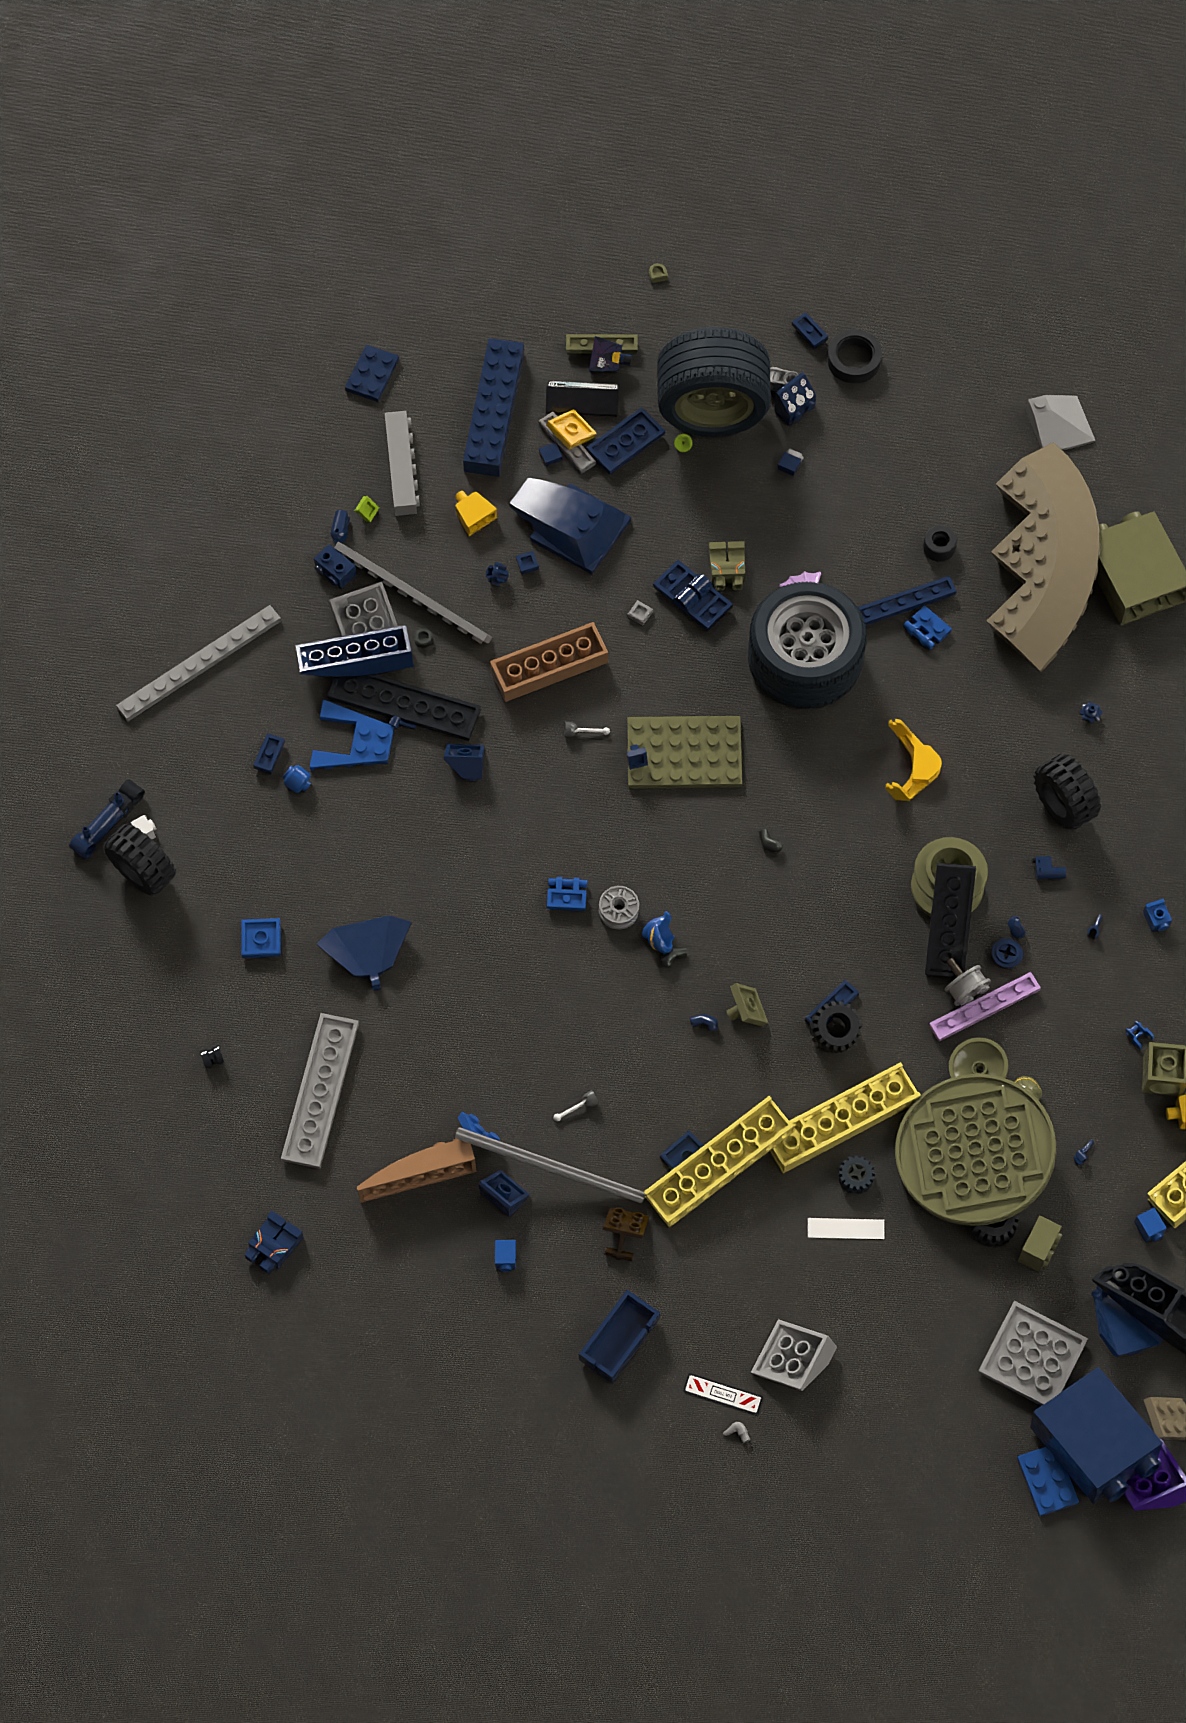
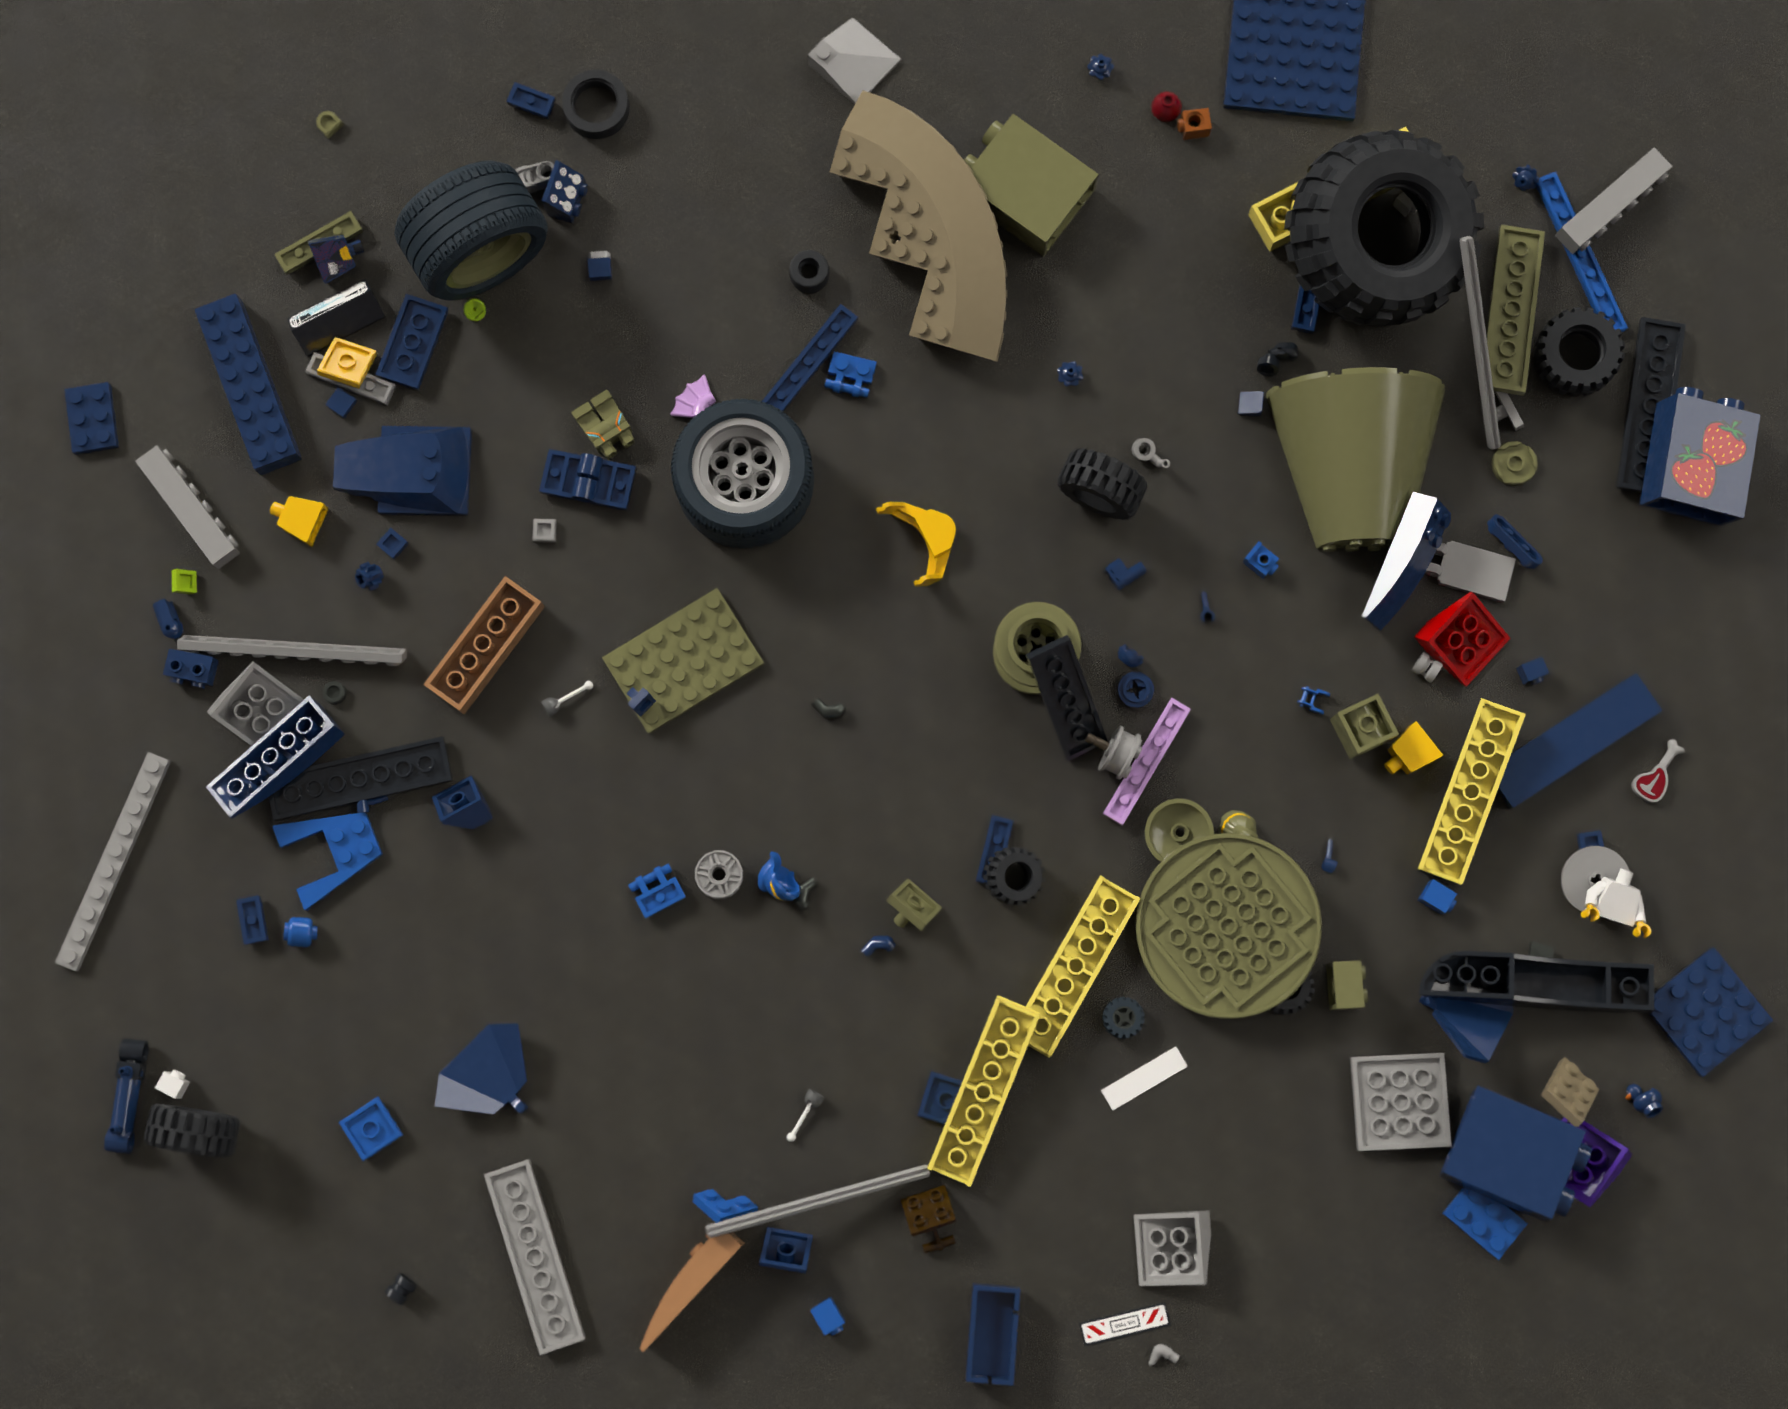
camera: 30 degrees left, 15 degrees up
(1117, 799) = (1149, 454): none -> light grey plate

